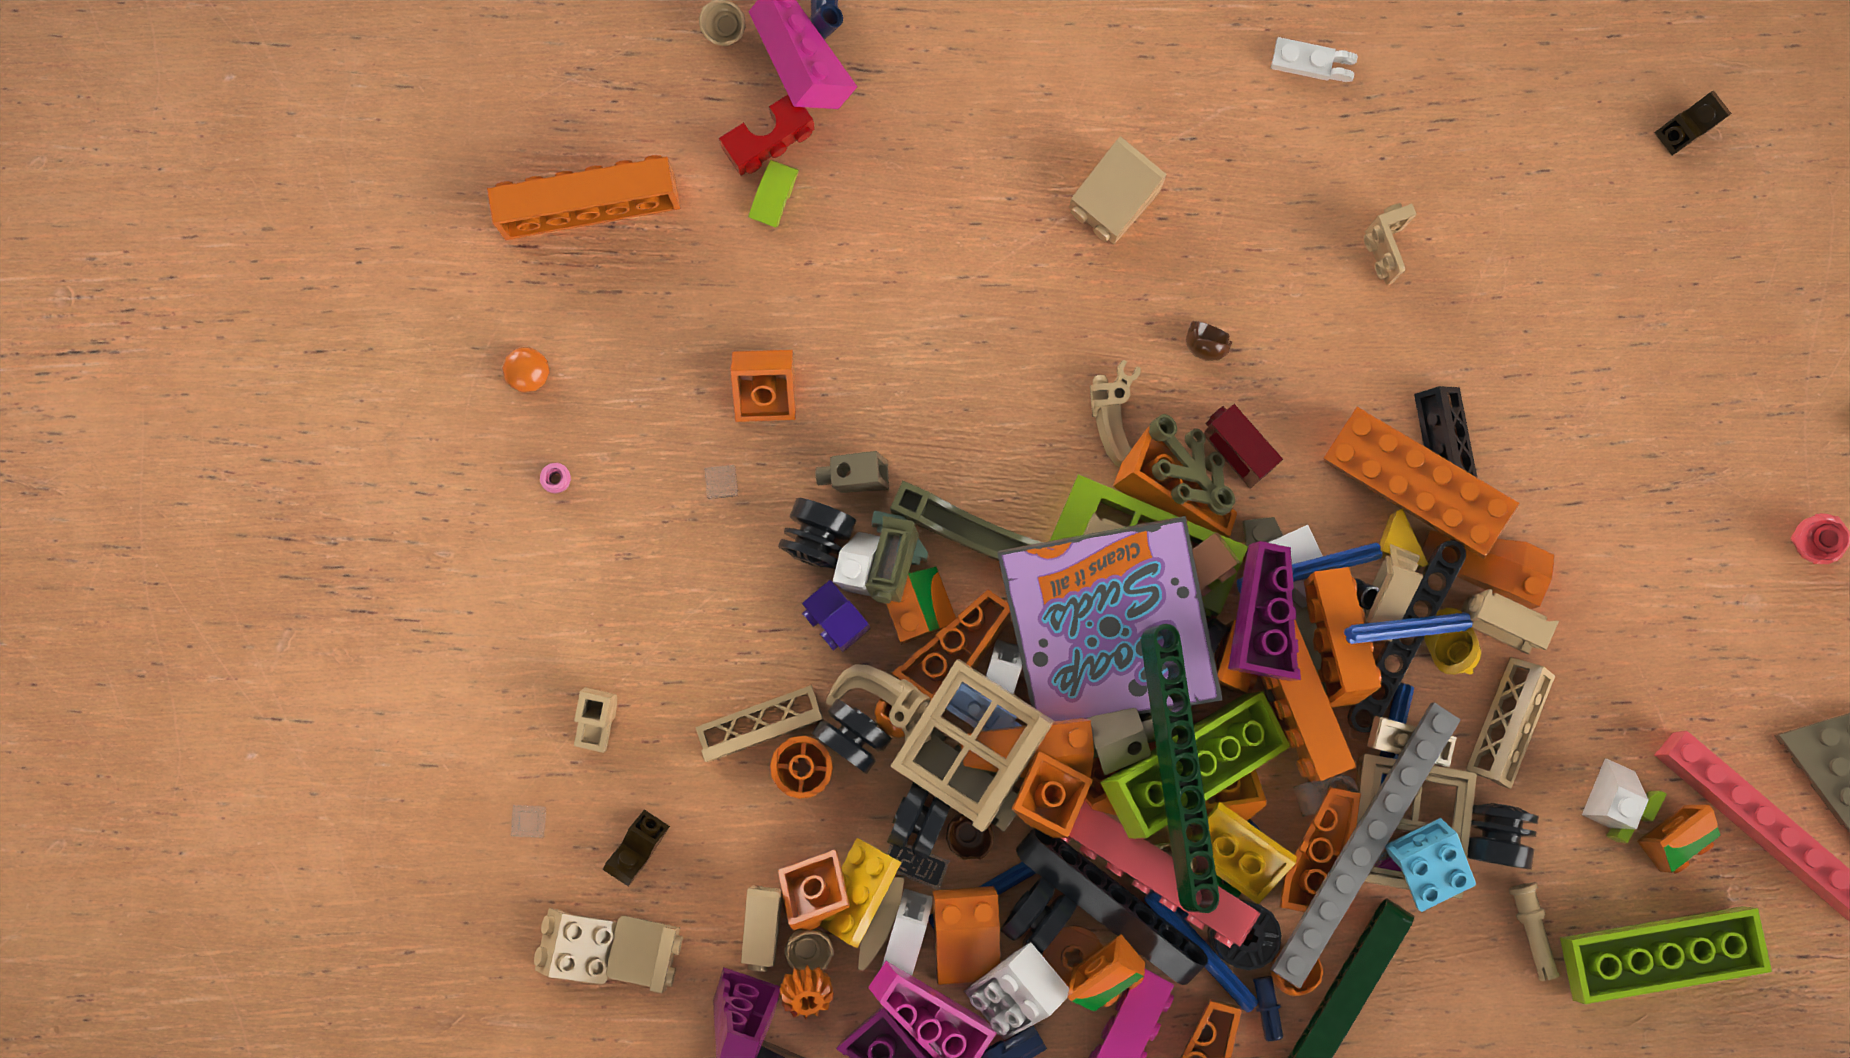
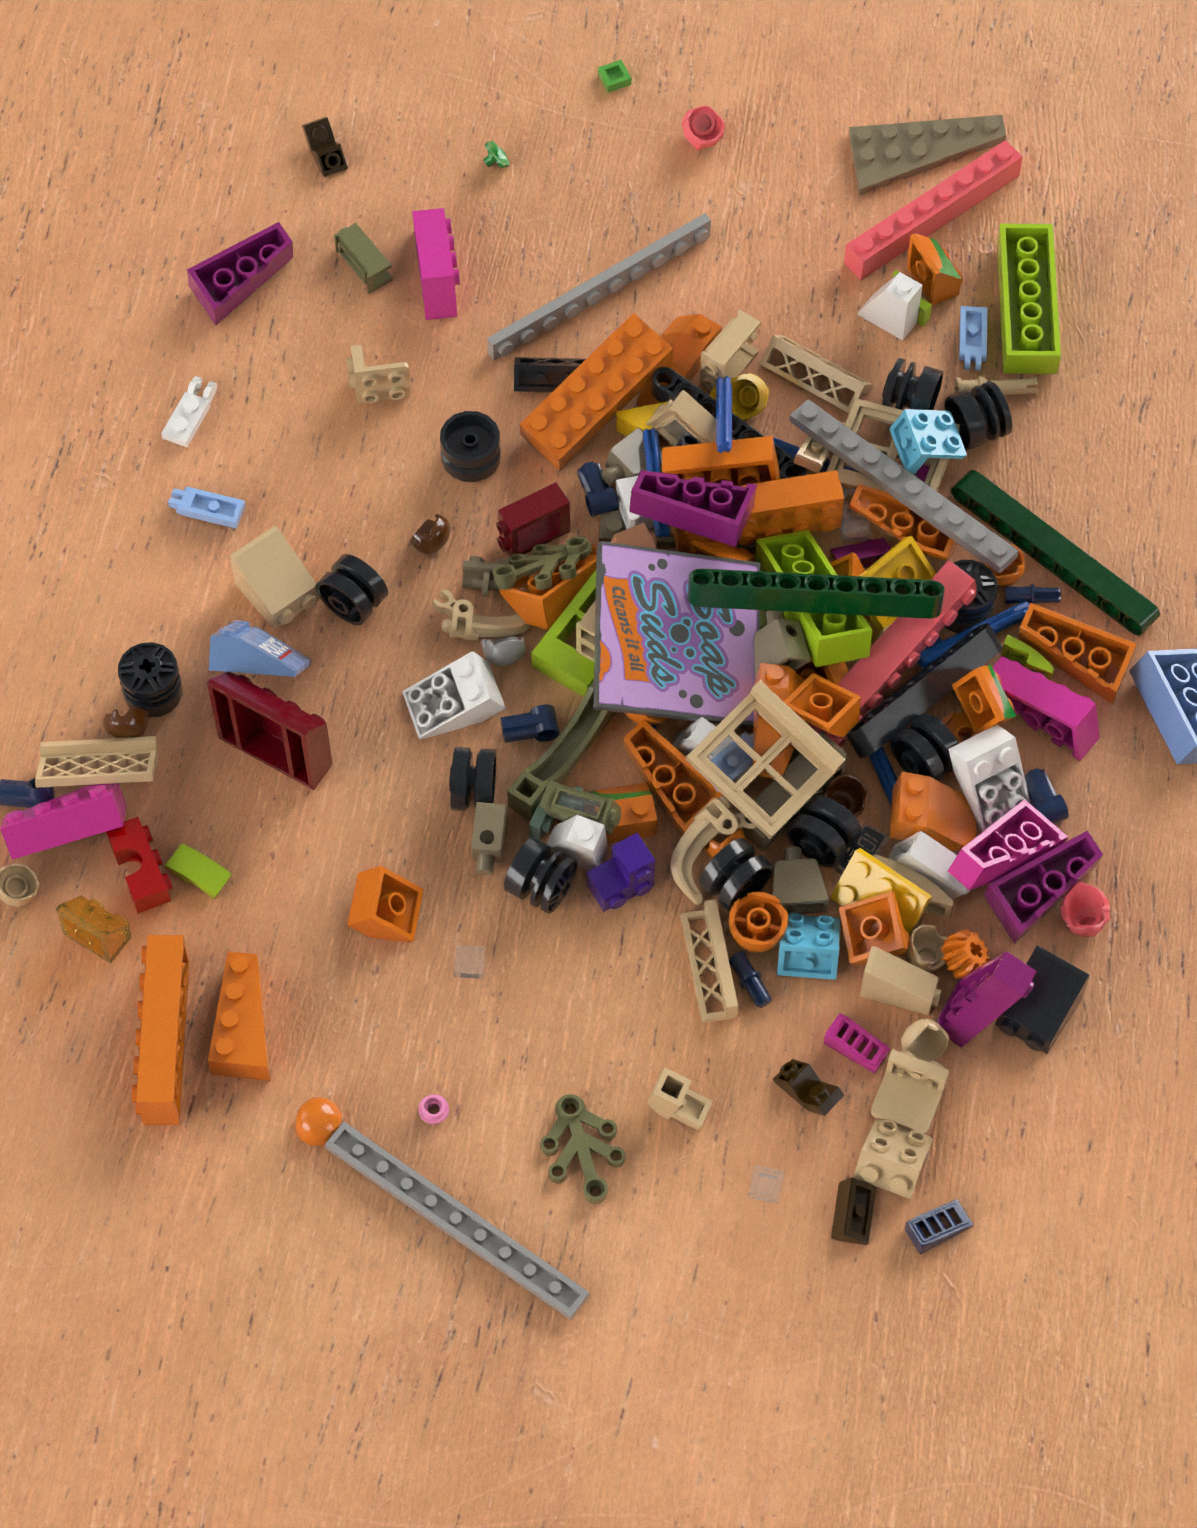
camera: 80 degrees left, 20 degrees down
(440, 523) = (457, 1221): none -> light grey plate
(512, 913) = (853, 1211): none -> dark brown slope
(518, 996) = (924, 1244): none -> dark blue slope
(542, 629) = (581, 1143): none -> olive plant
(614, 270) = (239, 1027): none -> orange wedge
(688, 106) = (94, 927): none -> clear yellow slope
(704, 960) = (925, 1040): none -> tan hair
(706, 867) = (853, 1029): none -> dark pink slope
(746, 770) = (750, 979): none -> dark blue axle
(797, 825) = (810, 947): none -> medium azure bracket
(862, 800) = (799, 884): none -> dark tan torso
(879, 63) = (98, 760): none -> tan fence
(914, 443) = (472, 779): none -> black wheel
(917, 84) = (129, 725): none -> reddish brown hair
(927, 223) = (270, 728): none -> dark red slope
(970, 109) = (150, 678): none -> black wheel
(1001, 496) = (538, 724): none -> dark blue piece
(1007, 190) = (253, 651): none -> medium blue slope
(1017, 406) = (454, 697): none -> white slope
(1083, 444) = (503, 650): none -> light grey hair
(1116, 272) = (352, 589): none -> black wheel
(1169, 402) = (480, 574): none -> dark tan hips
(1176, 1022) = (1027, 656): none -> lime slope
(1197, 106) = (207, 506): none -> light blue hinge
(1284, 810) = (867, 551): none -> magenta slope
(1296, 510) = (598, 495): none -> dark blue piece
(1335, 345) = (470, 446): none -> black wheel
(1342, 533) = (626, 458): none -> dark tan torso
(1488, 923) = (980, 414): none -> black wheel
(1500, 68) = (240, 270): none -> magenta wedge
(1550, 196) = (363, 257): none -> olive window
(1561, 274) = (436, 263): none -> dark pink wedge
(1579, 469) = (598, 287): none -> light grey plate
(1601, 896) = (973, 336): none -> light blue hinge
(1727, 312) = (496, 155): none -> plant

